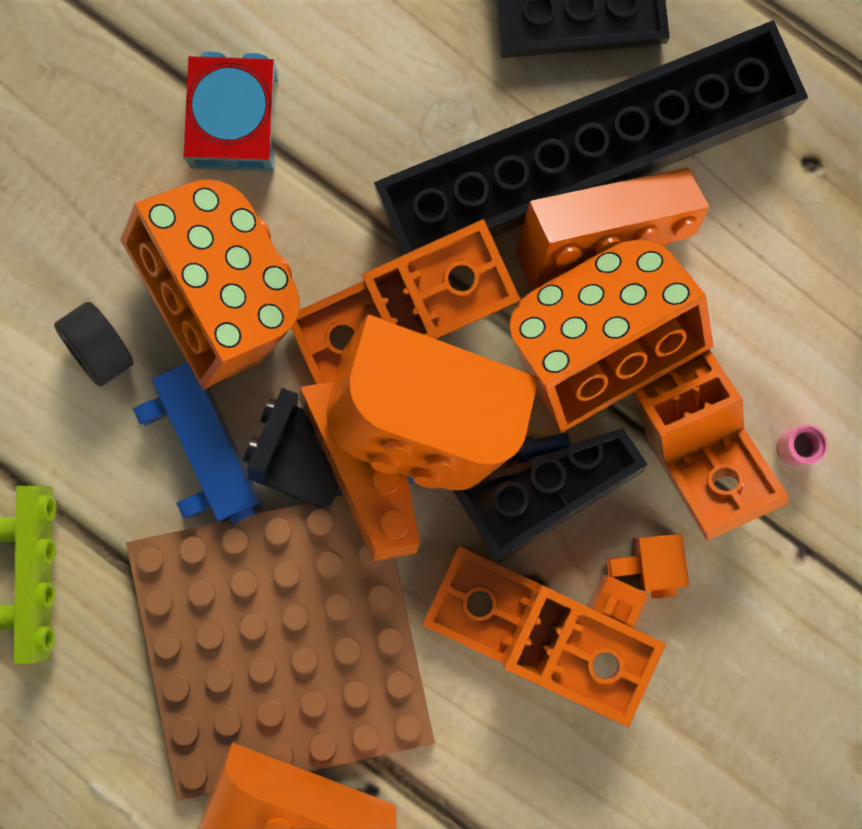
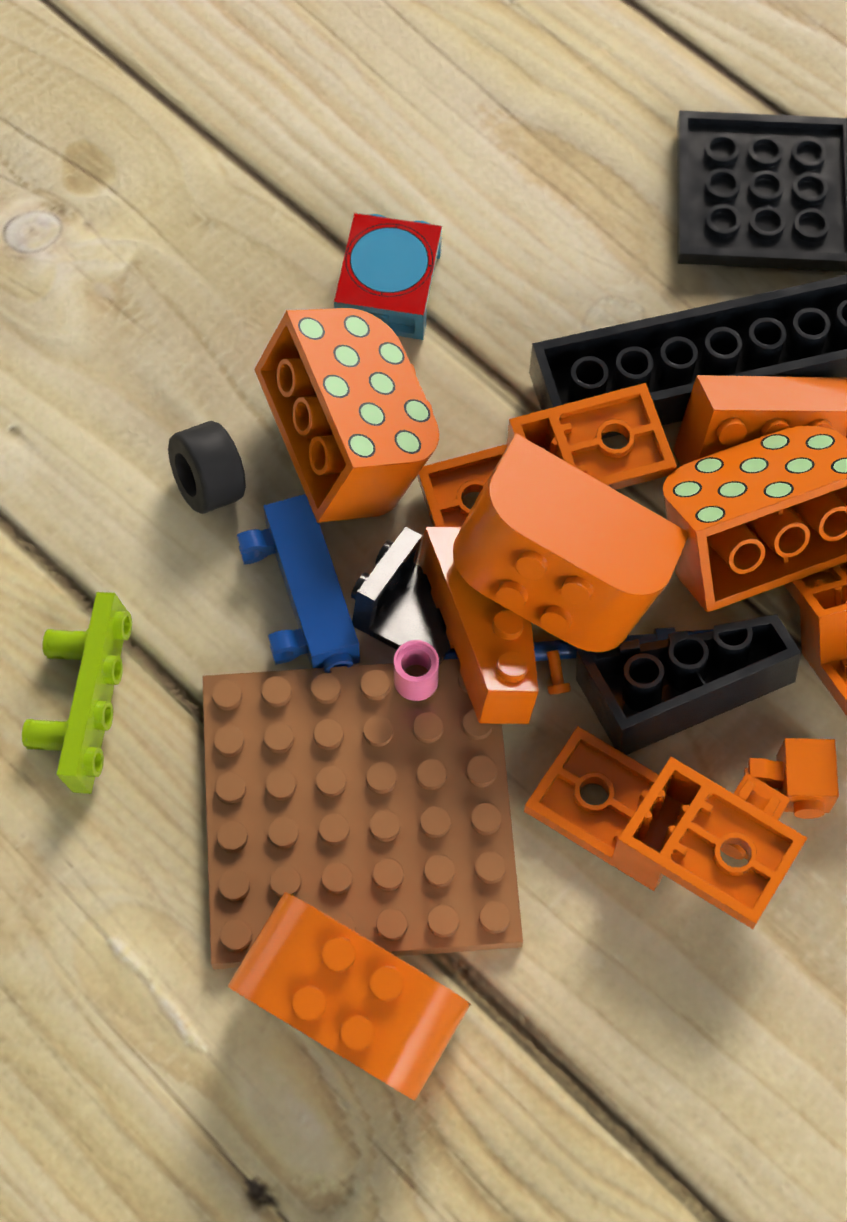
camera: 10 degrees right, 20 degrees down
(294, 523) = (416, 653): none -> bright pink beam
(438, 504) = (558, 685): none -> orange piece

